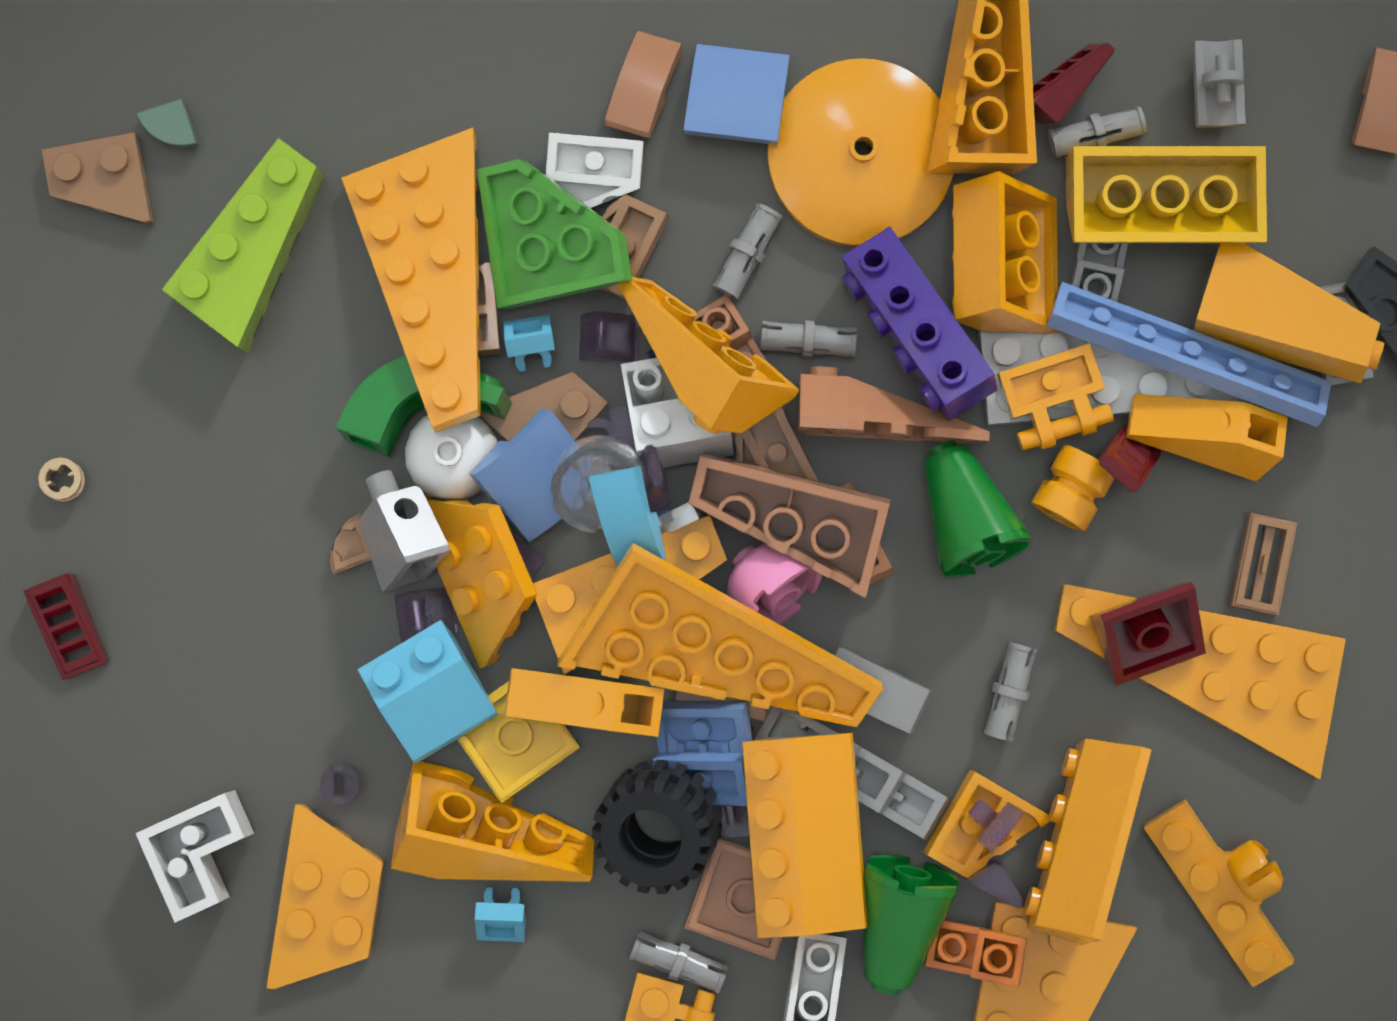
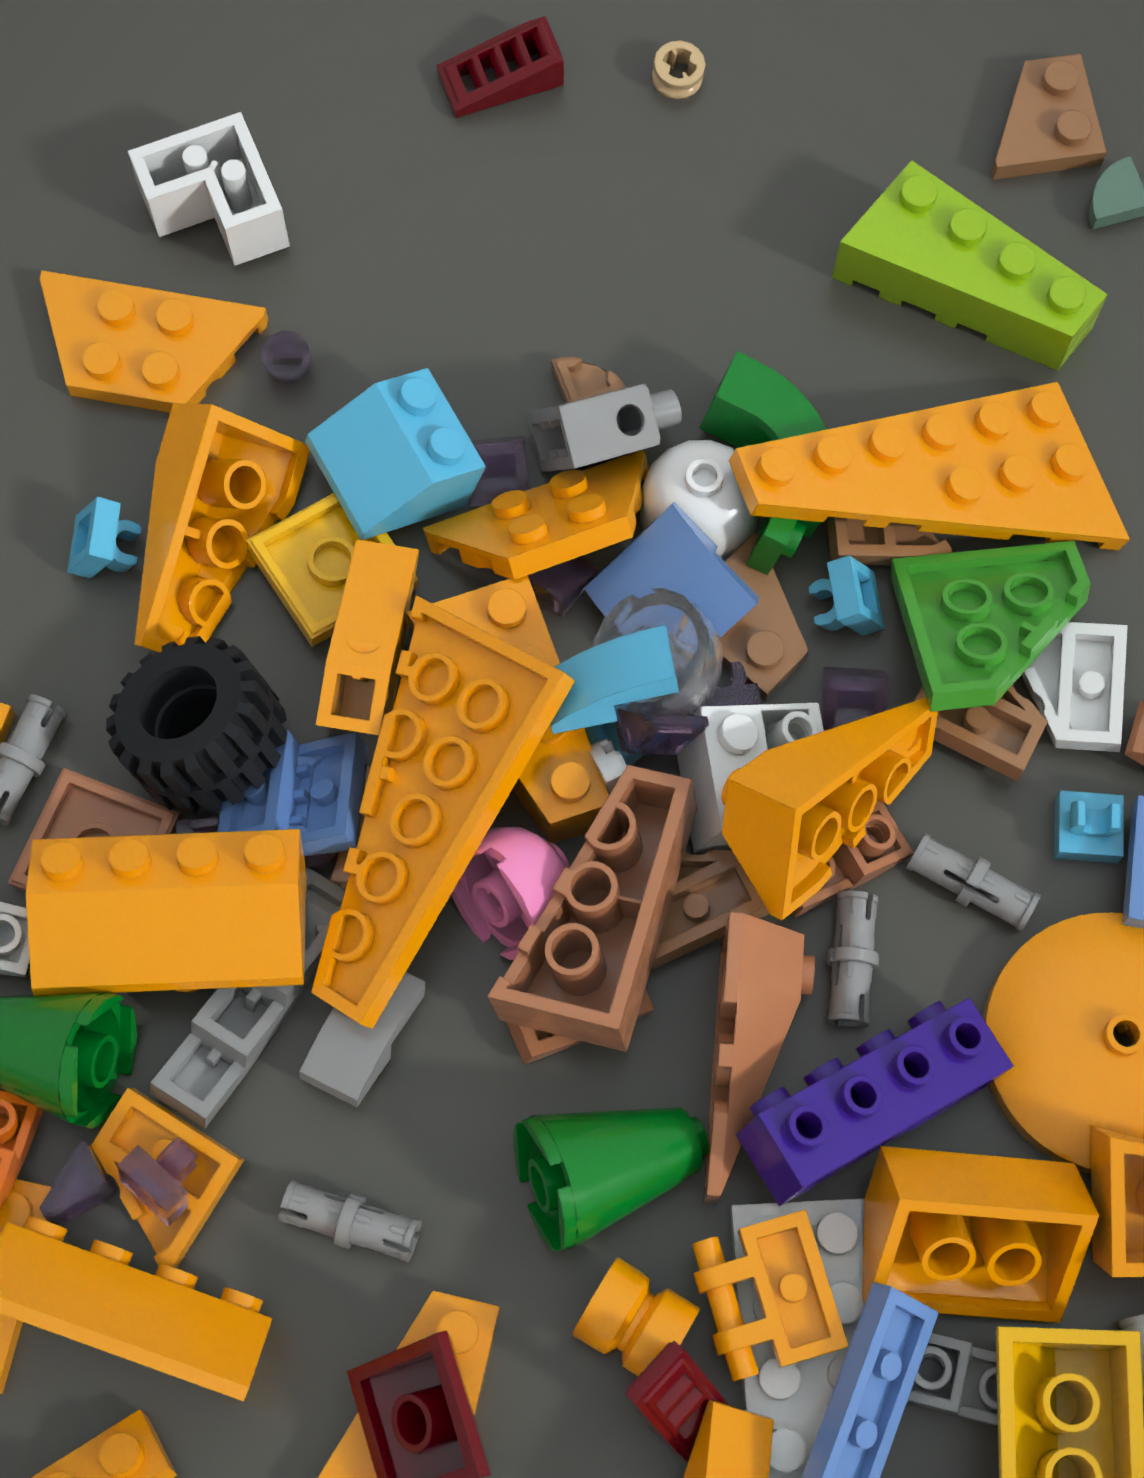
camera: 90 degrees right, 15 degrees down
(700, 165) = (1089, 826): none -> medium azure tile

